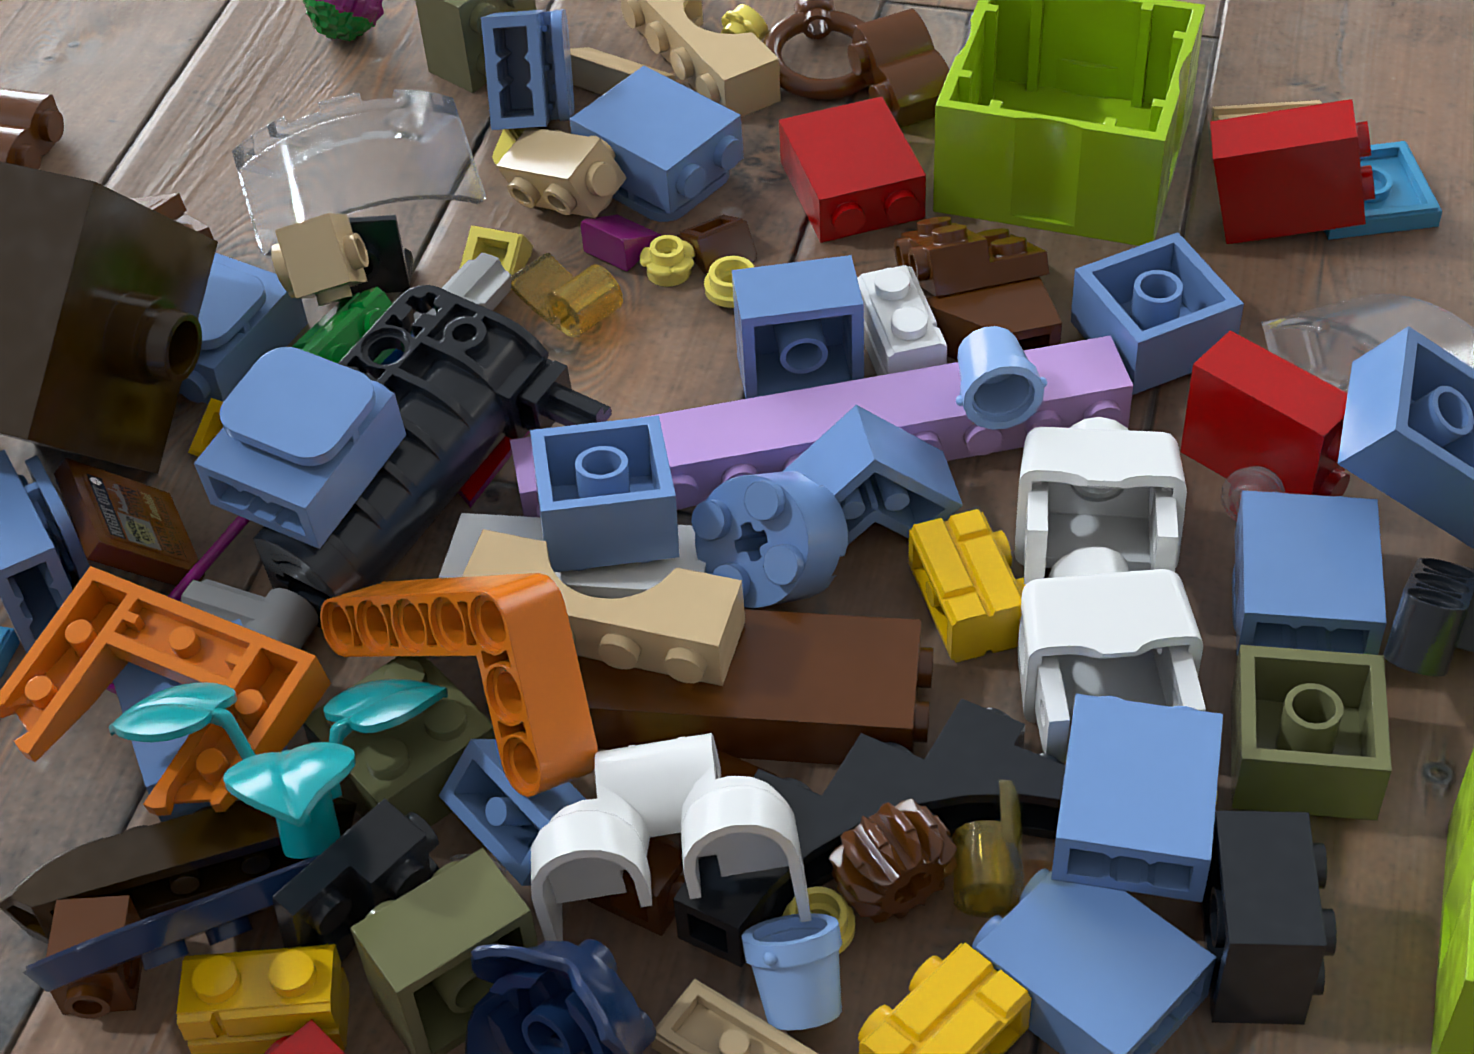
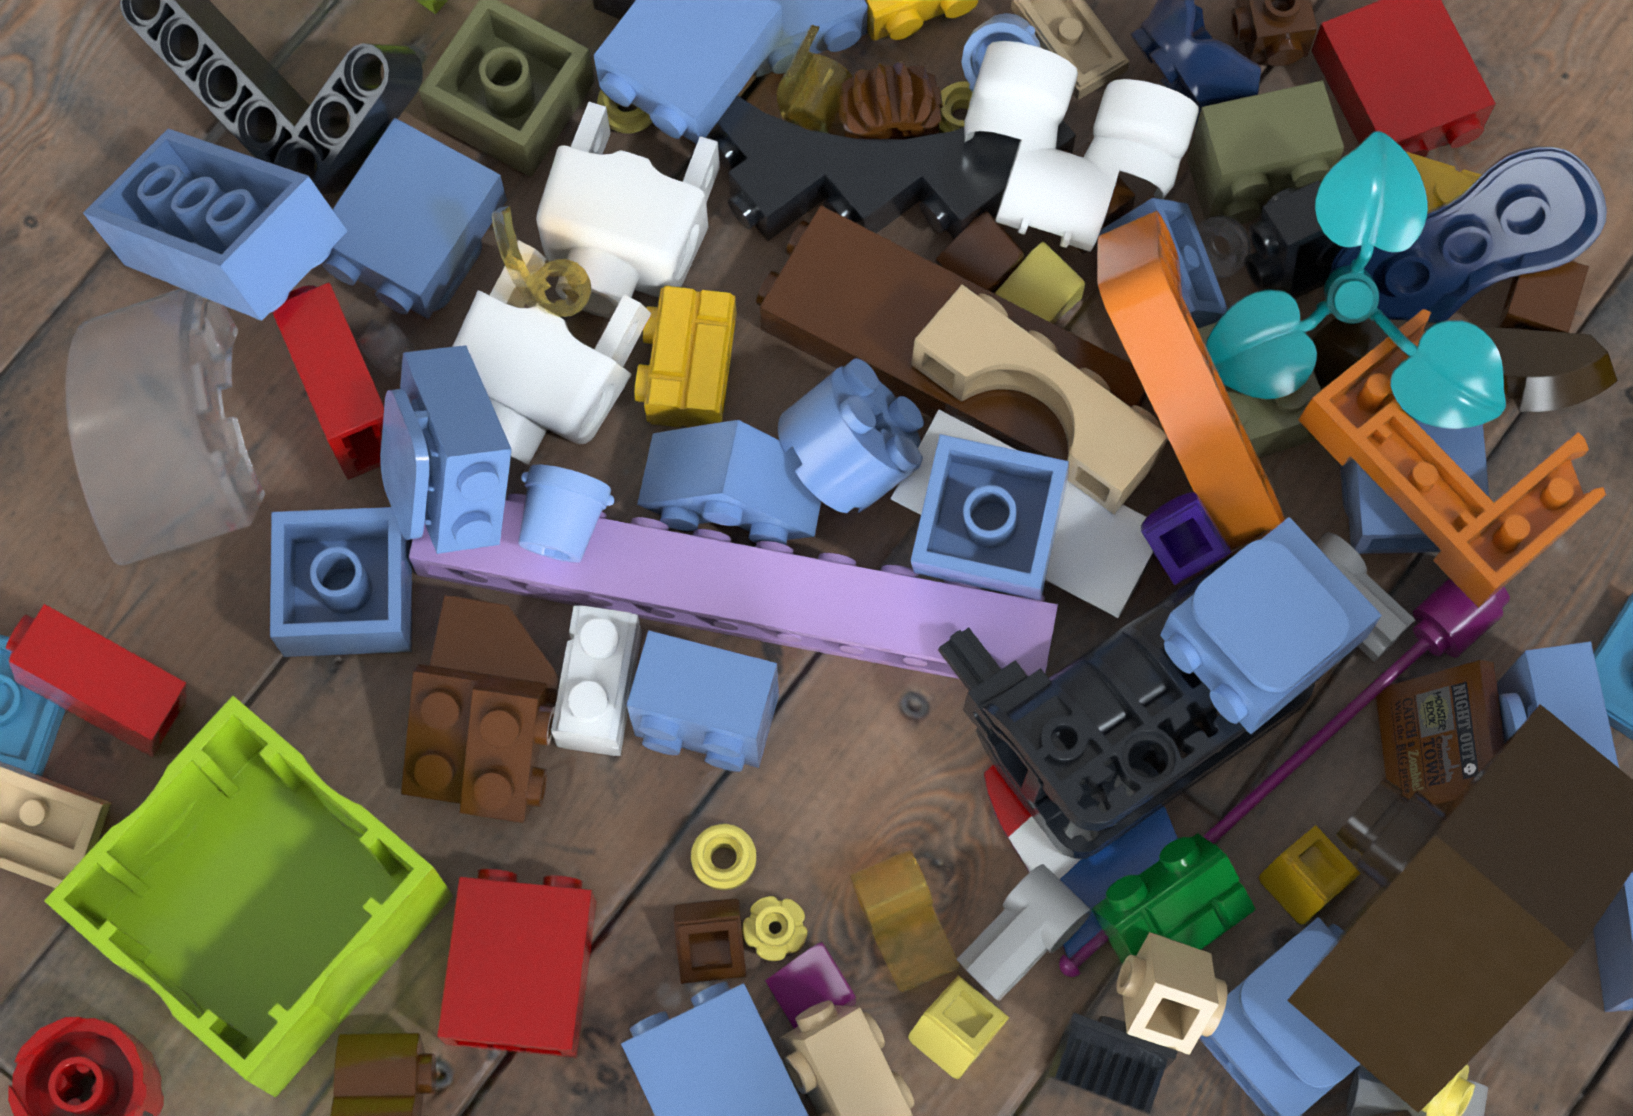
camera: 160 degrees left, 25 degrees up
(415, 553) = (1184, 537): none -> dark purple brick
(1121, 347) = (444, 452): none -> medium blue brick
(1129, 494) = (532, 281): none -> clear yellow panel

